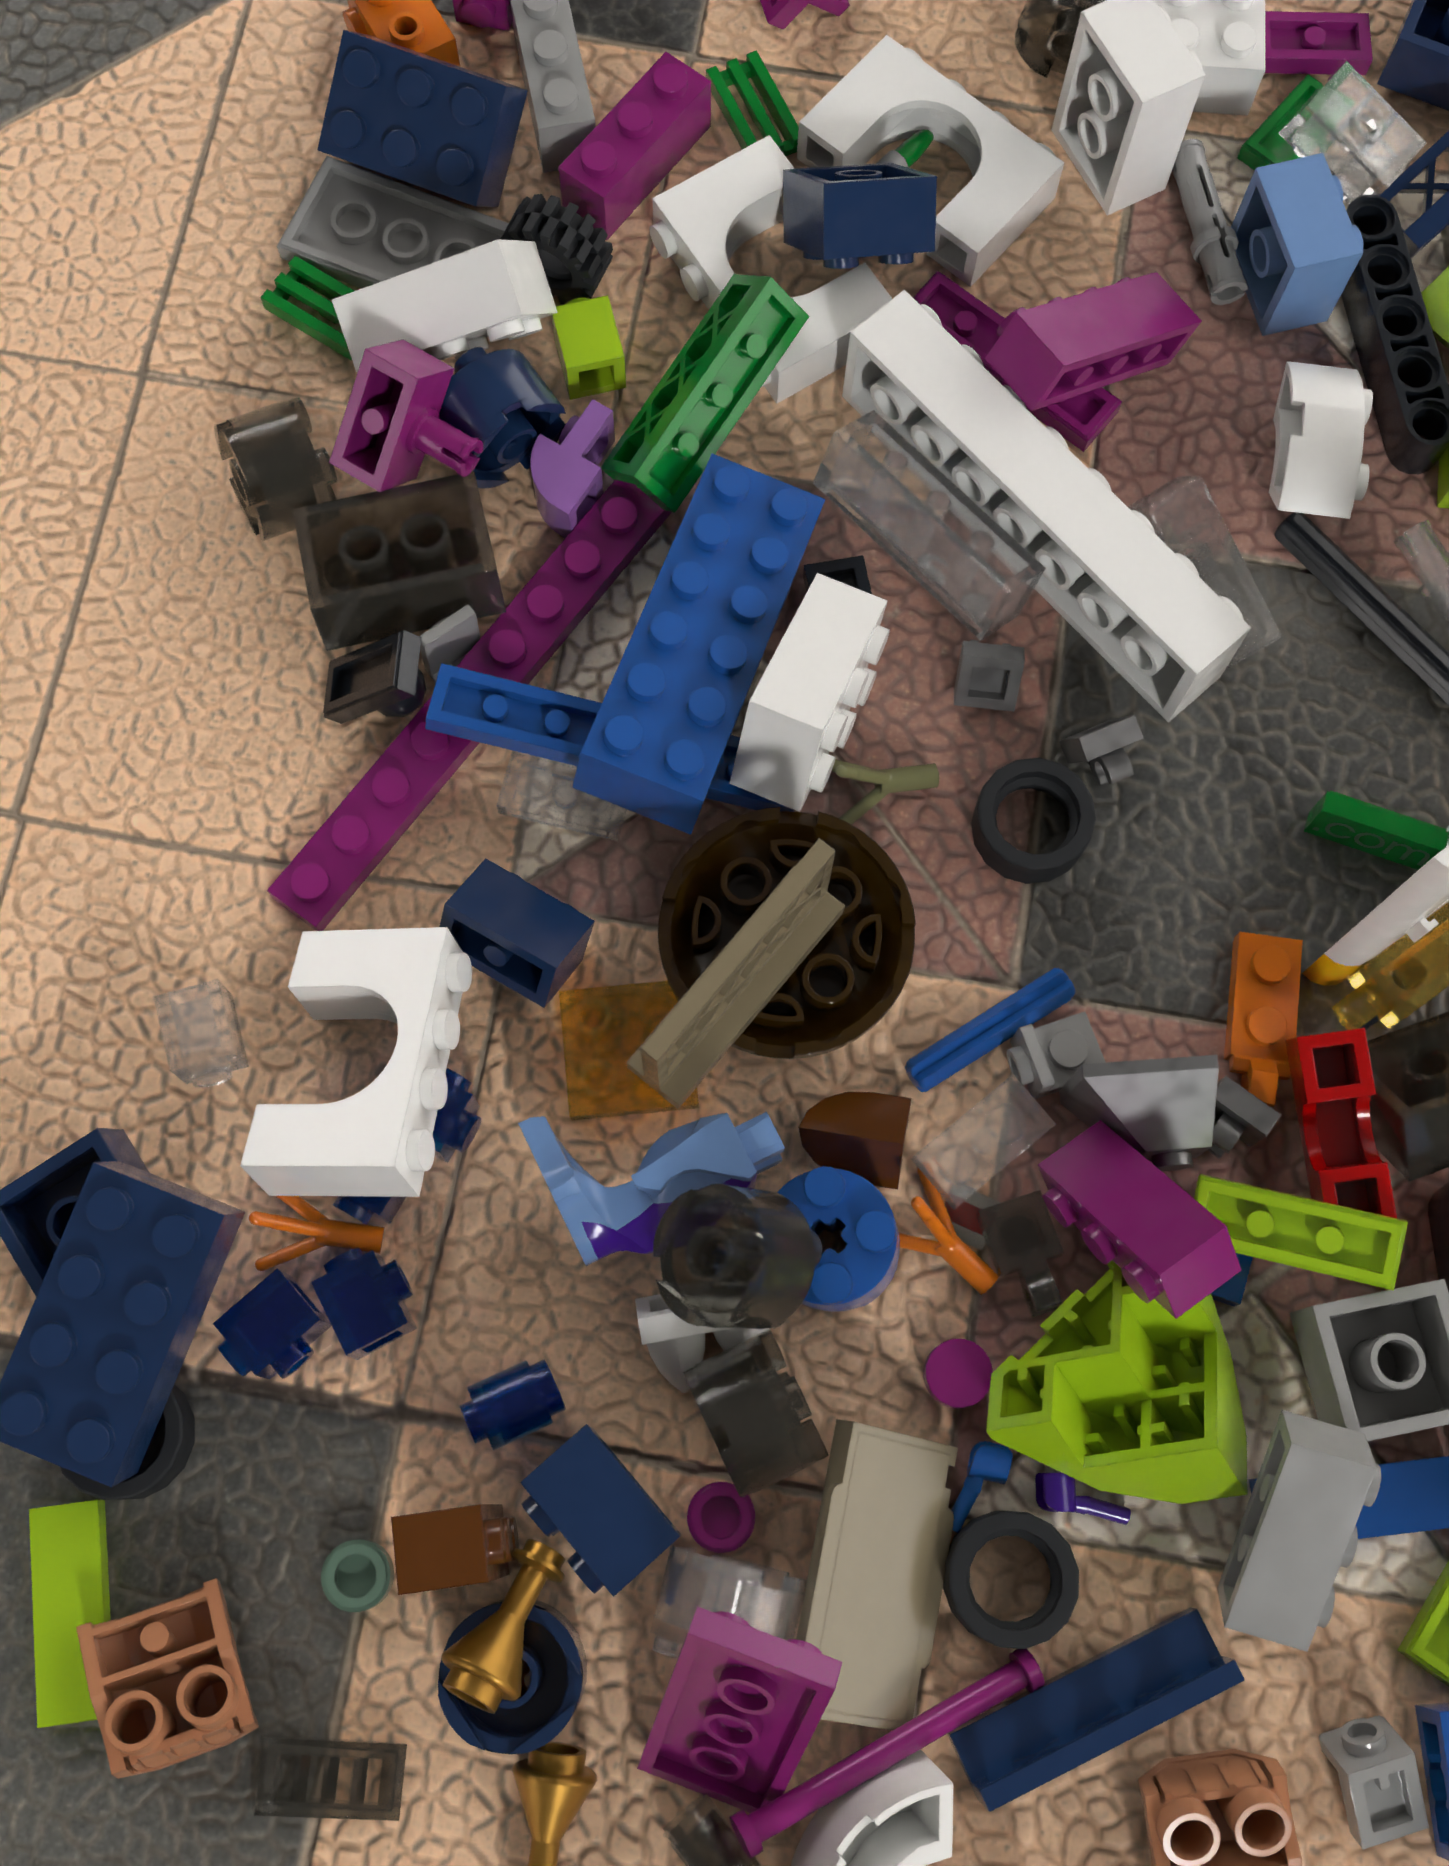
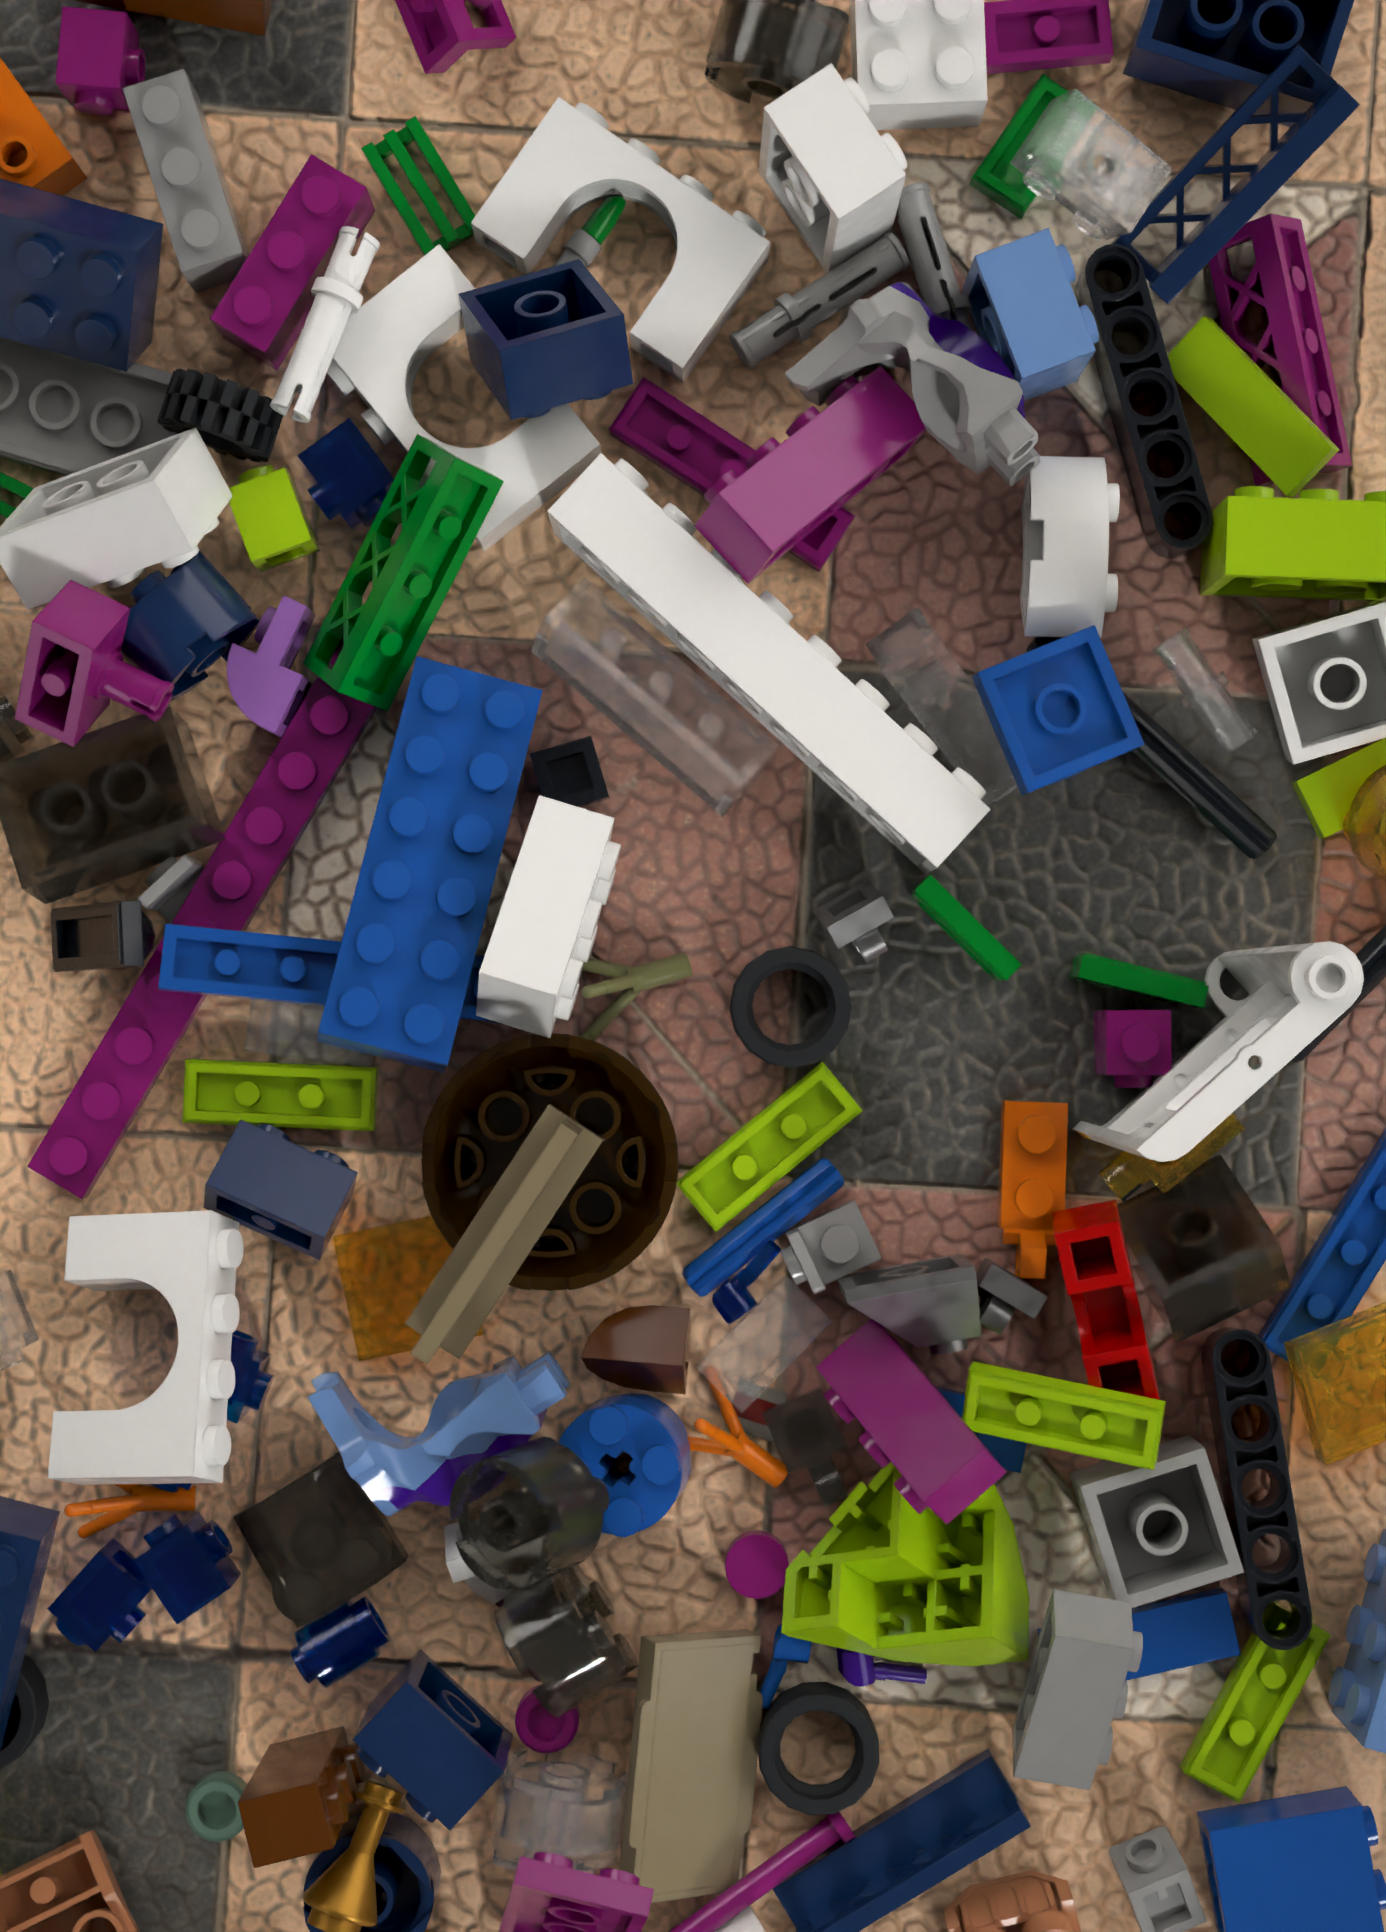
camera: 10 degrees left, 15 degrees up
(504, 1295) = (320, 1542): none -> clear smoke slope
(539, 853) = (280, 1094): none -> lime tile
(659, 315) = (347, 475): none -> clear blue brick
(672, 163) = (334, 301): none -> white pin
(954, 1092) = (733, 1296): none -> clear blue hand
(989, 675) = (733, 854): flat silver tile -> none
(1000, 954) = (768, 1146): none -> lime tile
(1045, 249) = (798, 314): none -> light grey pin
(1208, 764) = (964, 929): none -> green tile
(1235, 287) = (956, 378): none -> light grey hips
(1311, 569) = (1058, 710): none -> blue bracket
(1364, 877) = (1132, 1045): none -> magenta brick

